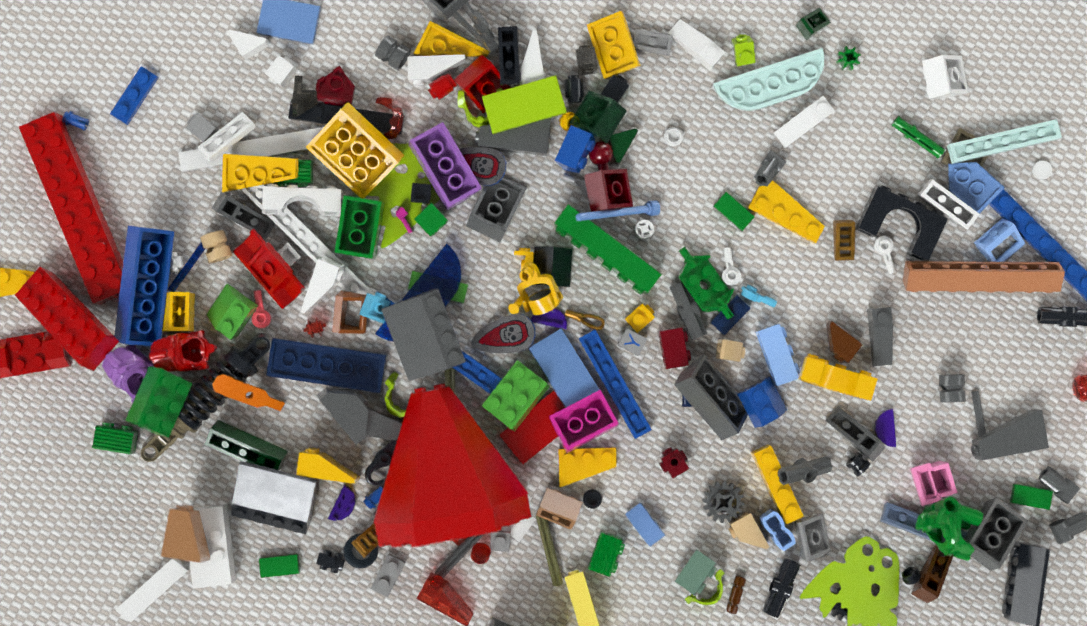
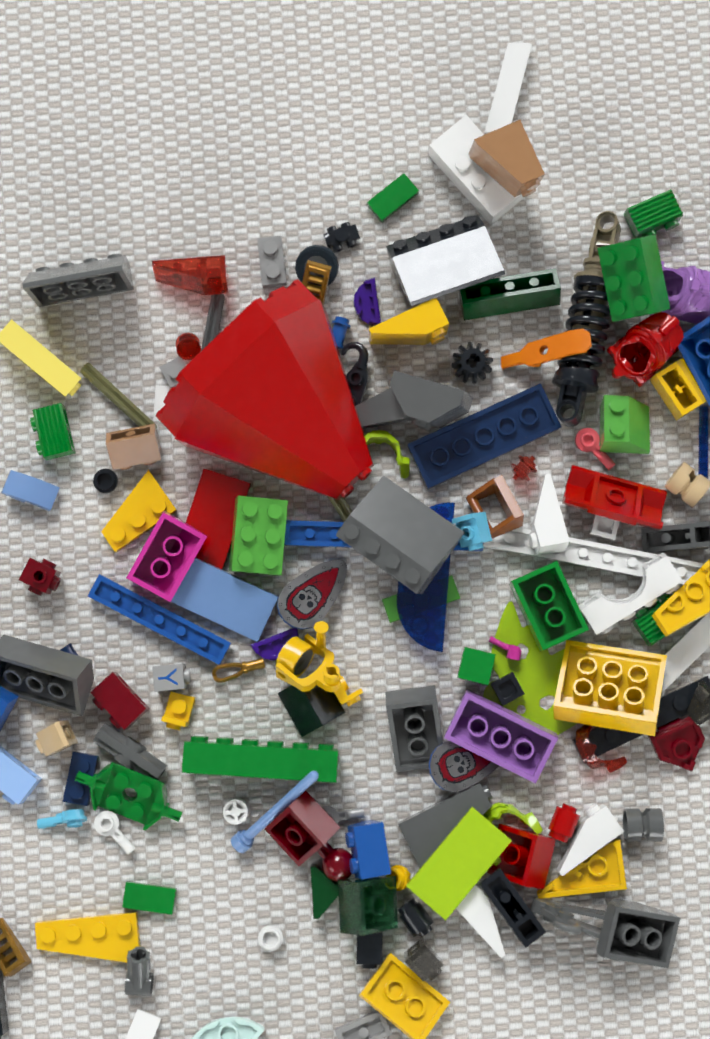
camera: 145 degrees right, 5 degrees down
(295, 421) = (463, 358): none -> black gear

